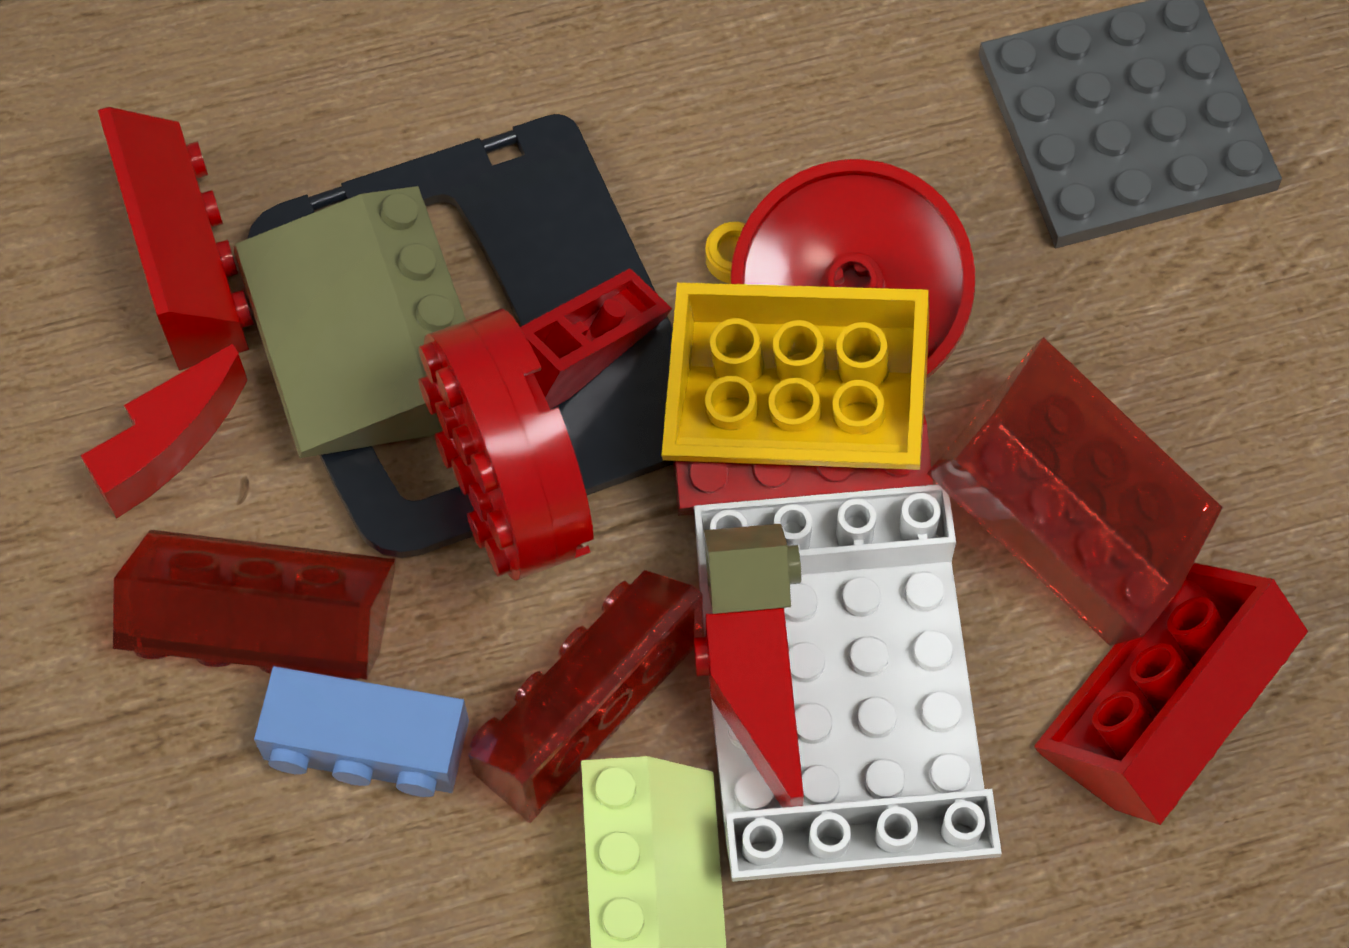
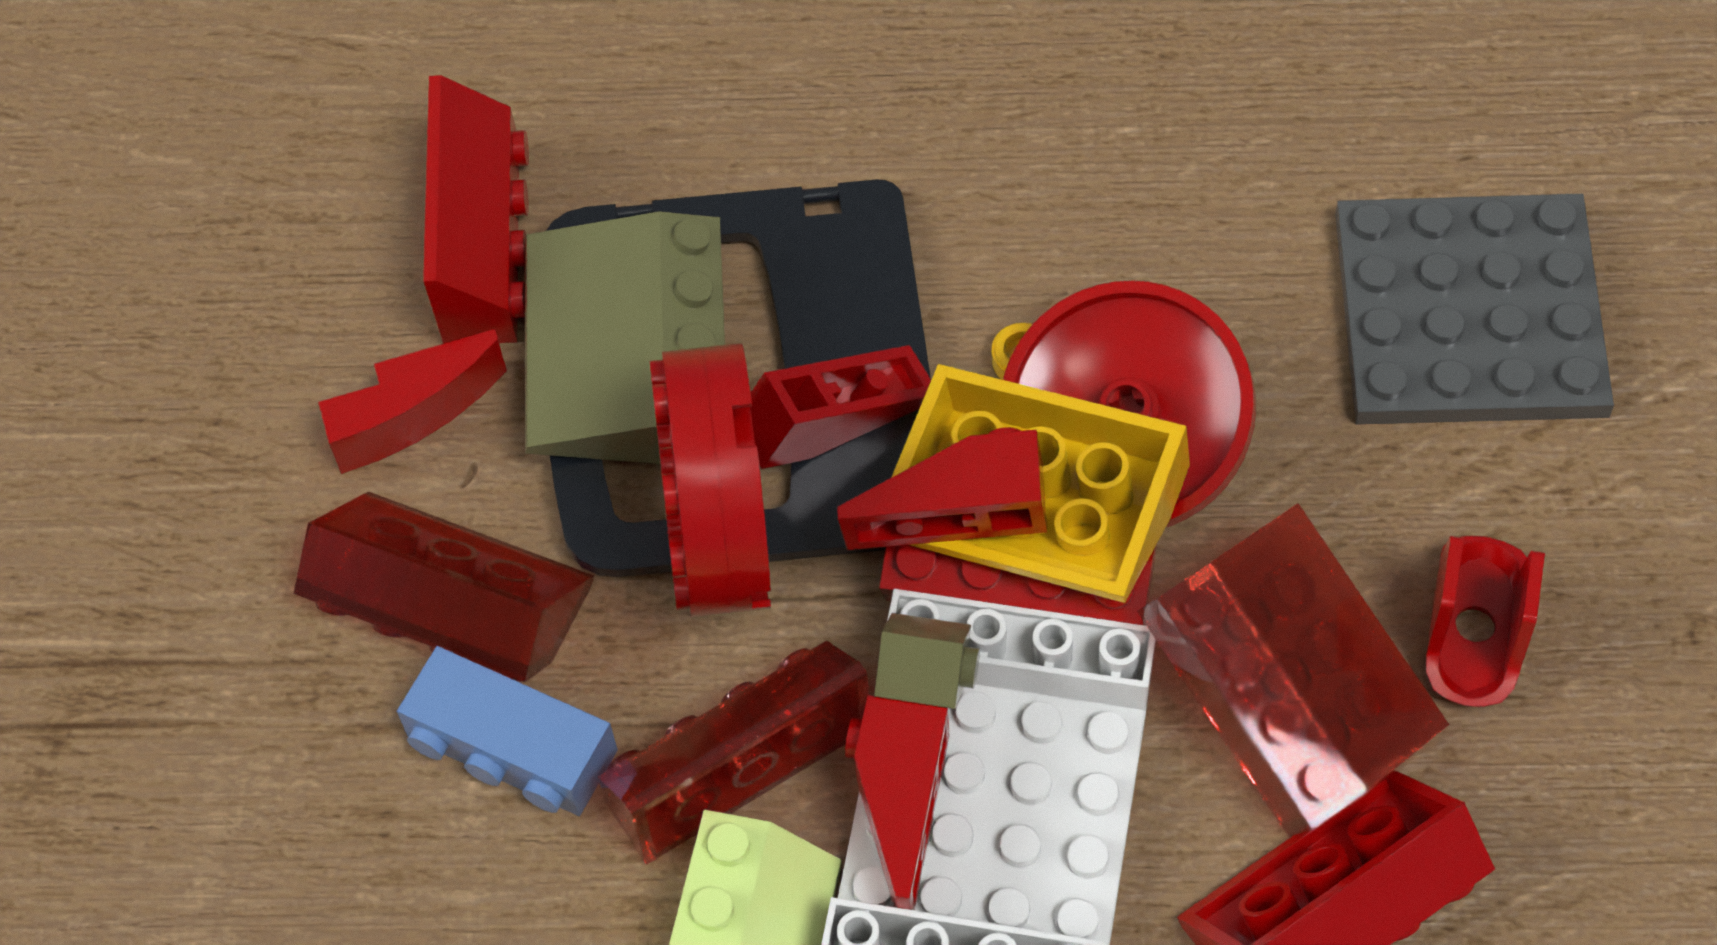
camera: 20 degrees right, 5 degrees down
(747, 400) = (962, 493): none -> red slope
(1248, 375) = (1504, 585): none -> red piece

